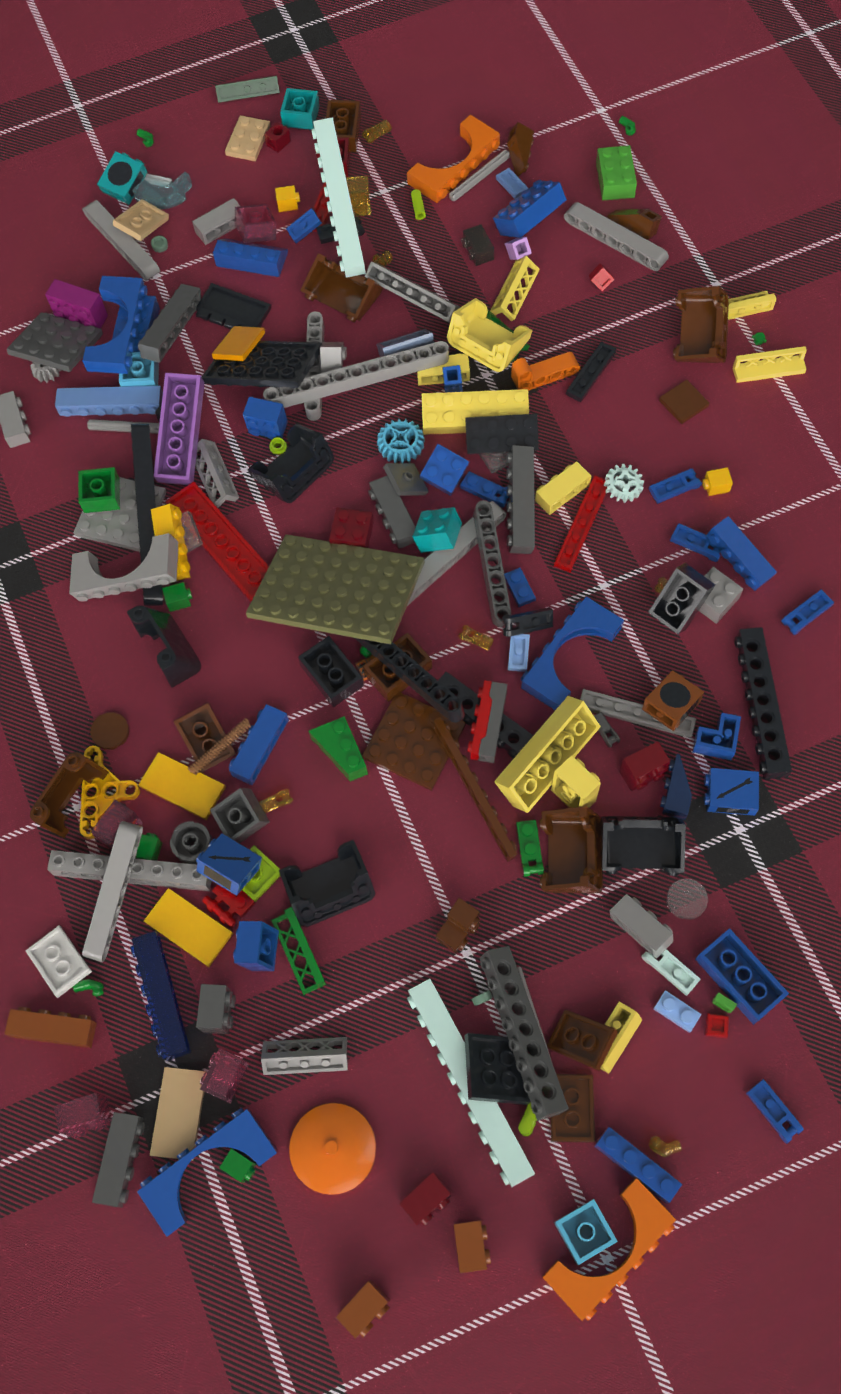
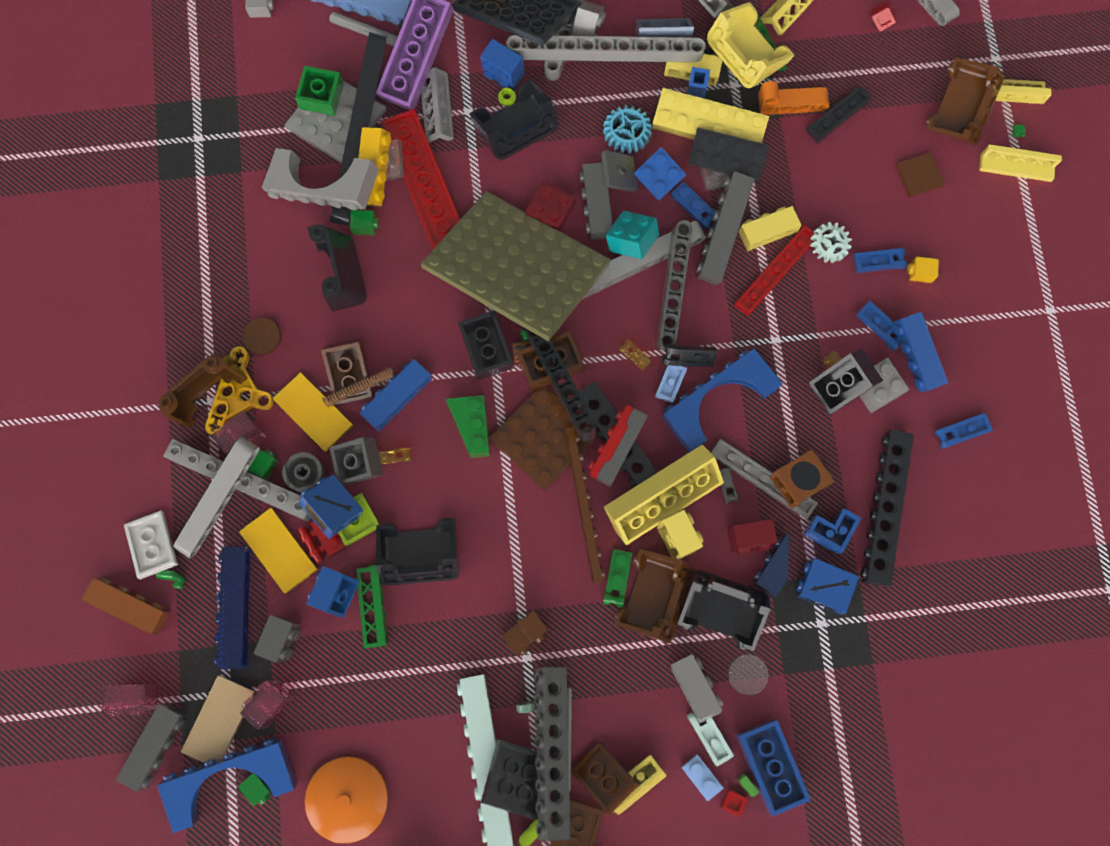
camera: 10 degrees right, 10 degrees up
(304, 1059) = (345, 710): light grey fence -> none
(519, 587) = (693, 316): blue plate -> none

